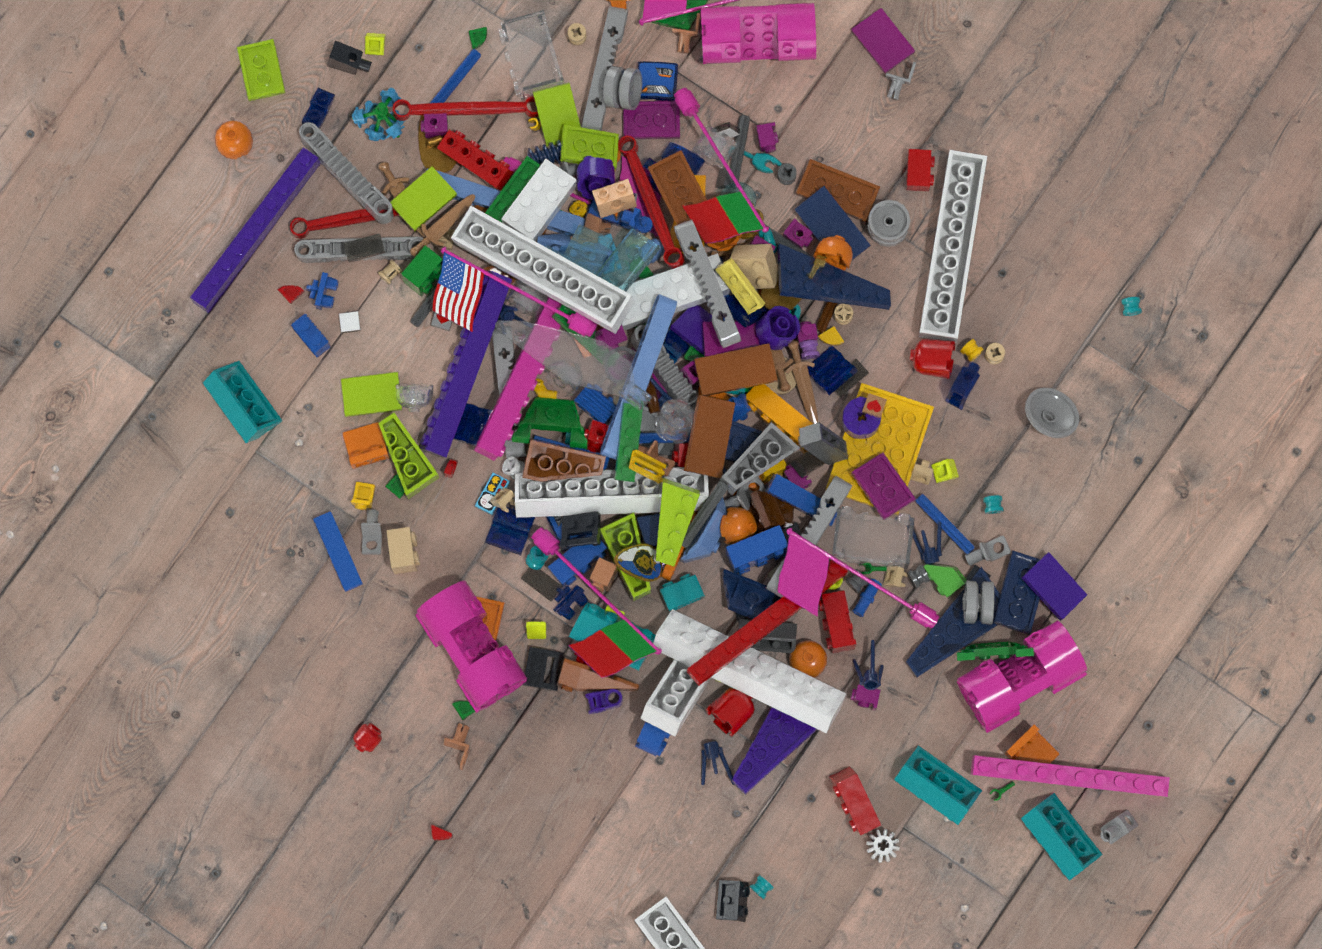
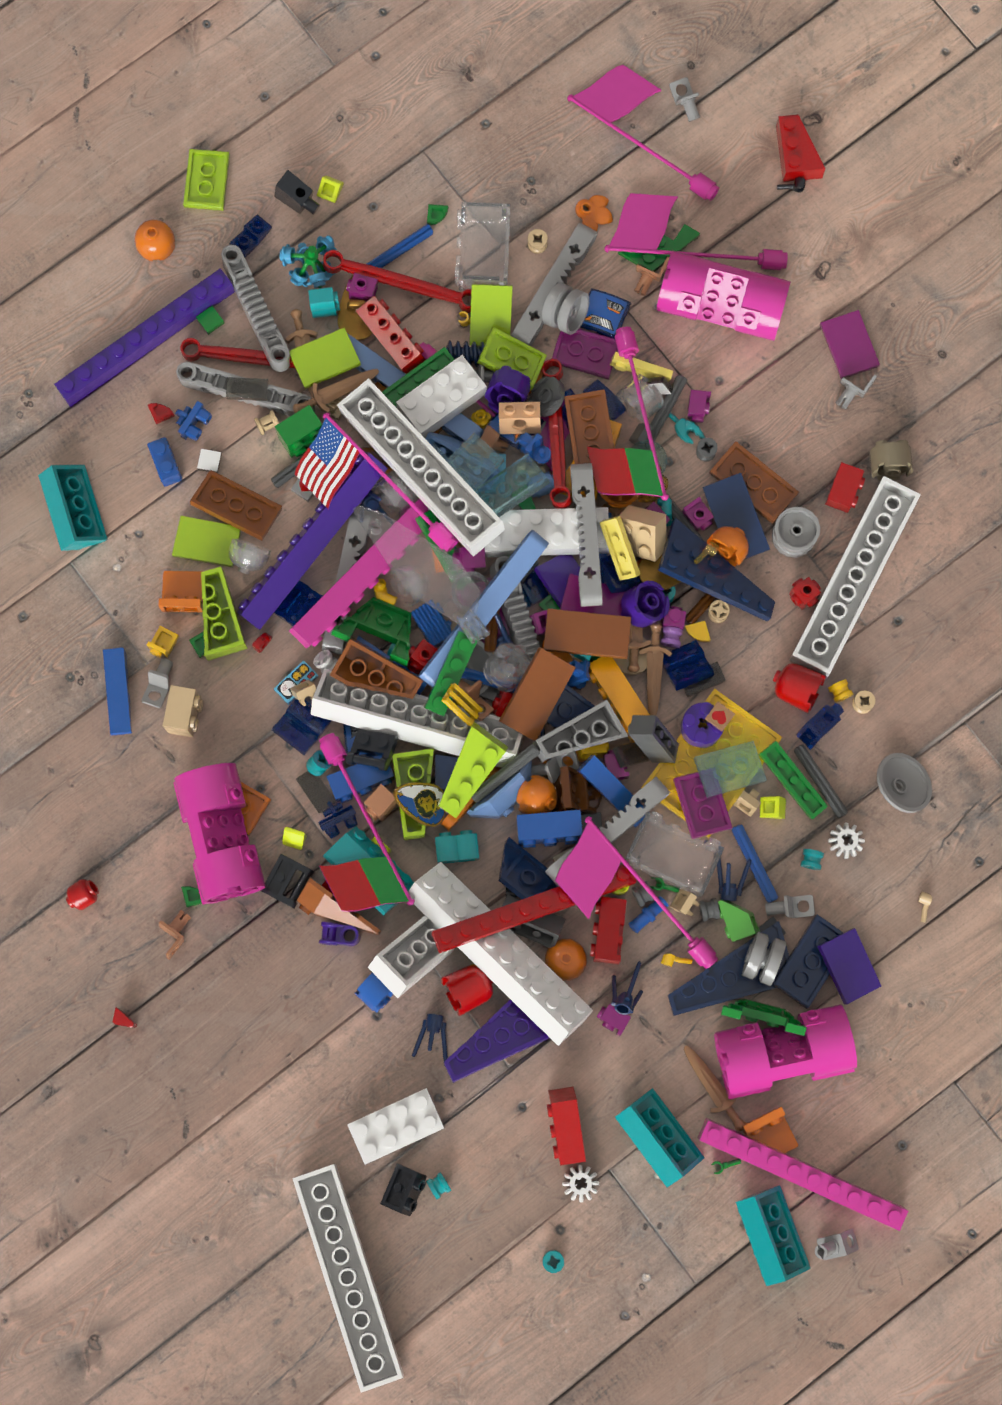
camera: 15 degrees right, 0 degrees up
(307, 196) = (210, 320): none -> green tile
(387, 354) = (236, 505): none -> dark orange plate
(405, 149) = (324, 302): none -> teal brick
(632, 167) = (549, 393): none -> dark grey tile
(707, 119) = (644, 368): none -> light yellow plate
(708, 848) = (395, 1126): none -> white brick
(880, 922) = (551, 1258): none -> teal wheel
(896, 631) = (668, 960): none -> yellow hand
(897, 448) = (730, 769): none -> clear light blue tile
(911, 280) = (802, 599): none -> red brick
(952, 133) = (891, 459): none -> dark tan brick
(955, 441) = (793, 780): none -> green plate
(971, 728) = (714, 1088): none -> medium nougat sword
(979, 434) = (820, 781): none -> dark grey axle
(1012, 481) = (853, 839): none -> white gear
(1102, 508) = (925, 899): none -> tan hand

